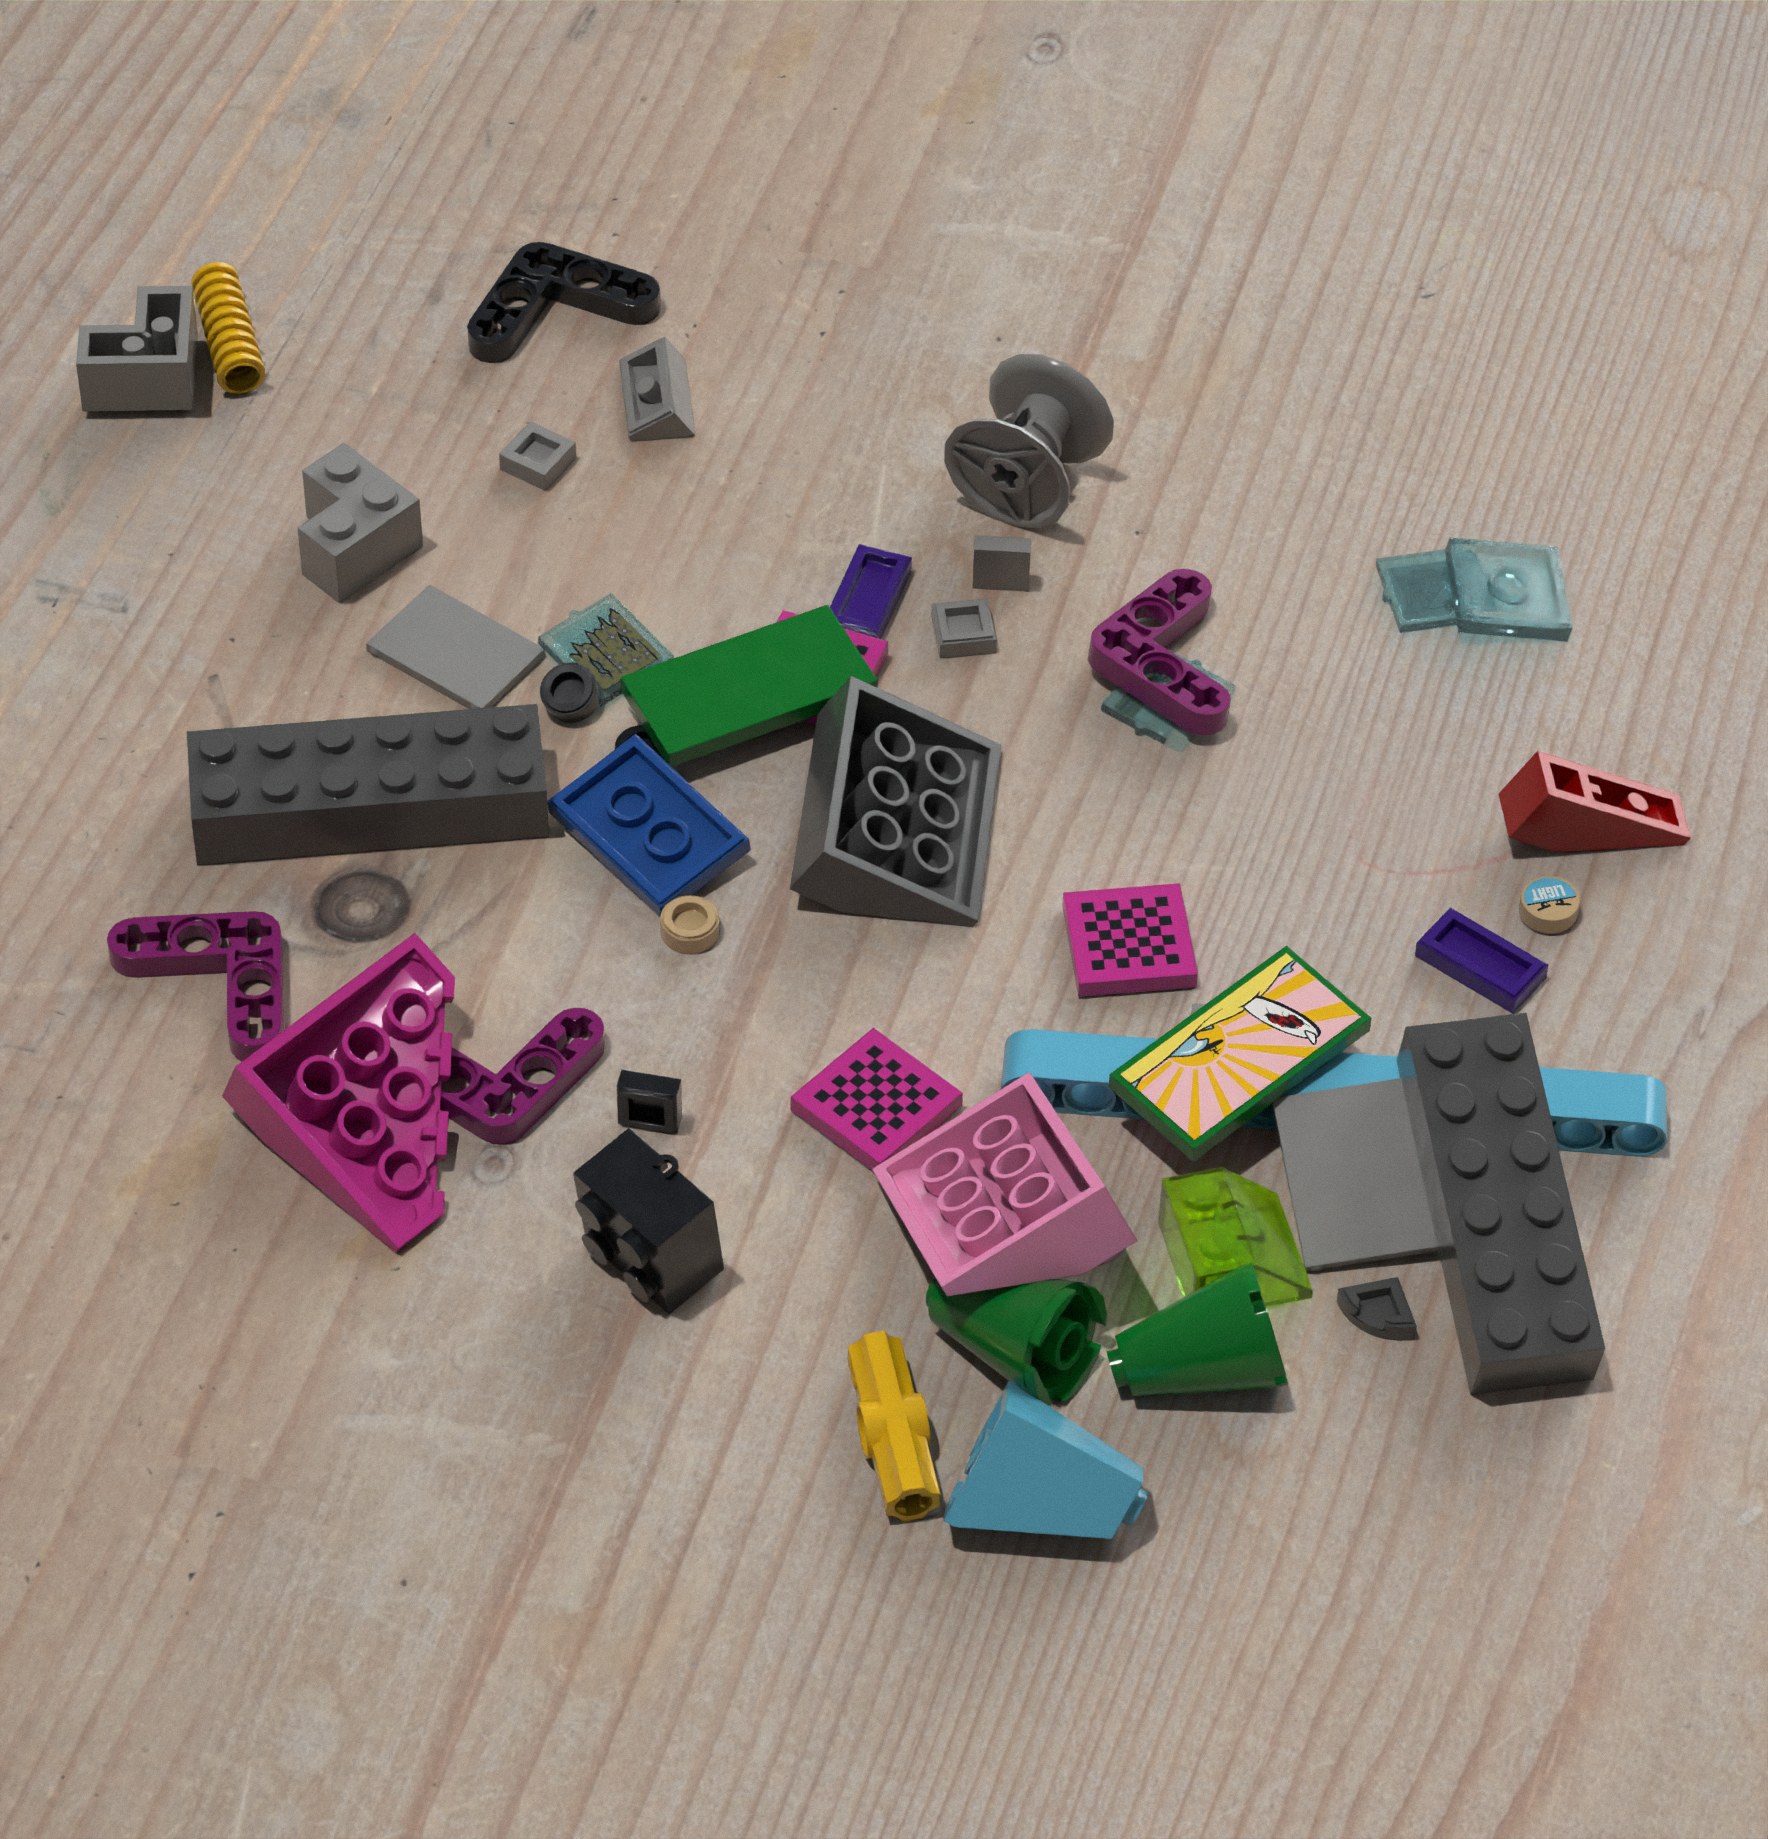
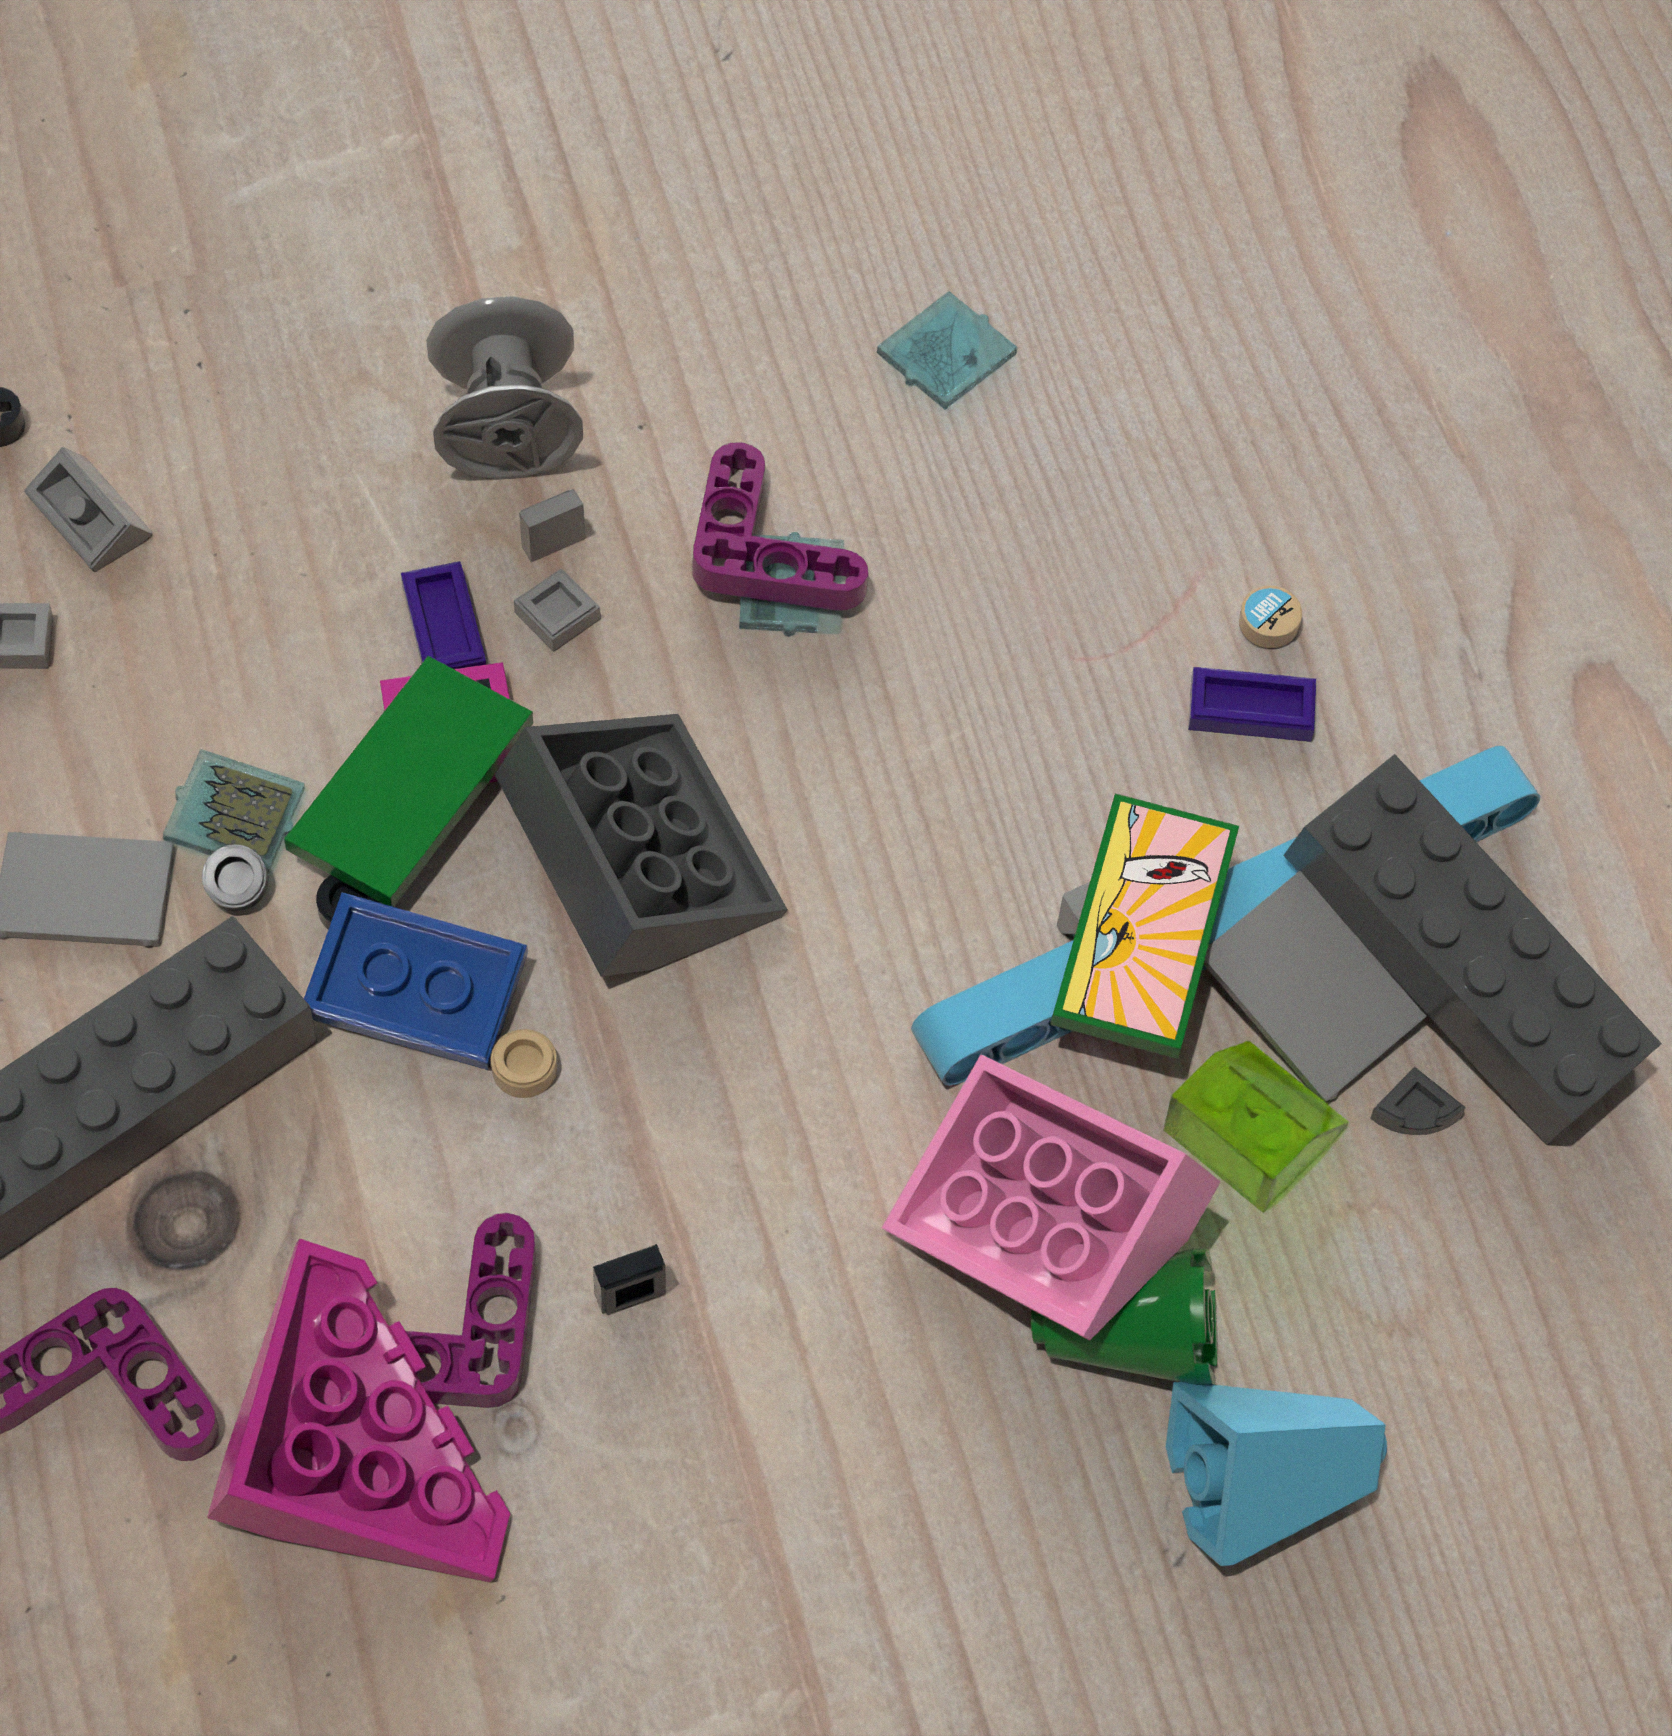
camera: 35 degrees left, 10 degrees up
(648, 1221) = (736, 1418): black brick -> none
(875, 1100) = (831, 1153): dark pink tile -> none
(893, 1426) = (1096, 1489): yellow piece -> none
(1129, 940) = (937, 854): dark pink tile -> none
(1203, 1343) = (1316, 1236): green cone -> none
(1508, 589) = (1014, 319): clear light blue tile -> none
(1585, 808) = (1243, 505): red slope -> none

